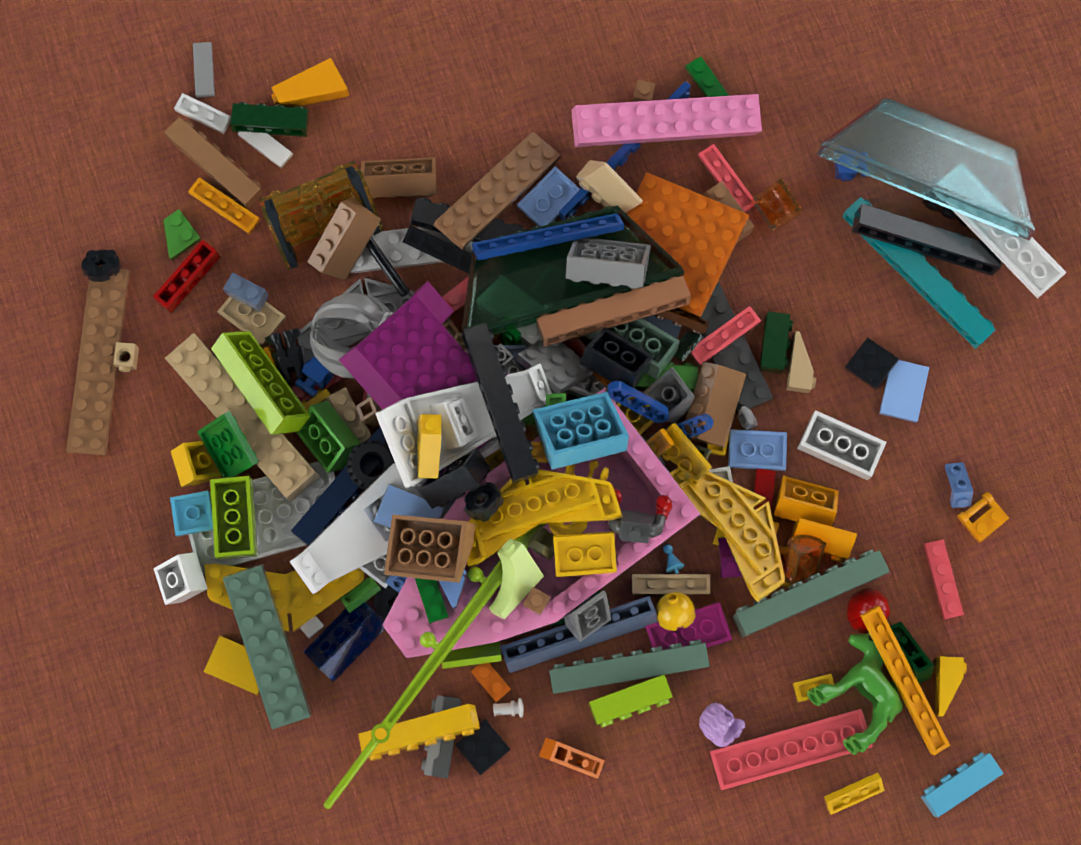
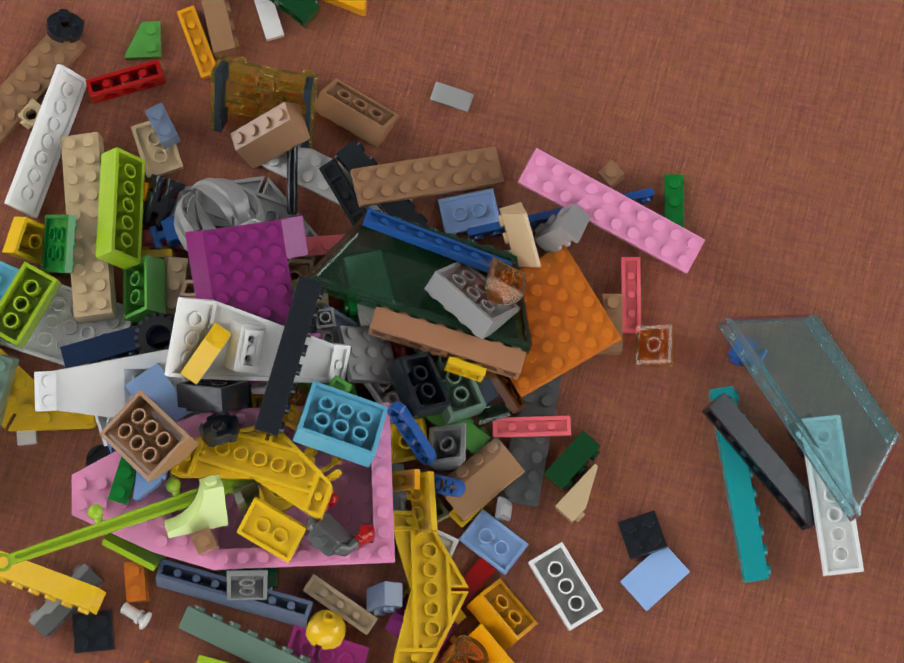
camera: 40 degrees right, 0 degrees up
(154, 370) = (44, 143): none -> white plate
(345, 640) = (44, 465): clear blue slope -> none
(360, 594) = (81, 437): bright green tile -> none
(469, 113) = (451, 96): none -> light grey slope
(627, 231) = (504, 283): none -> clear orange brick
(640, 158) = (562, 228): none -> light grey wedge
(643, 322) = (469, 370): none -> yellow plate
(673, 562) = (354, 588): medium azure piece -> none
(705, 553) = (384, 598): none -> sand blue brick

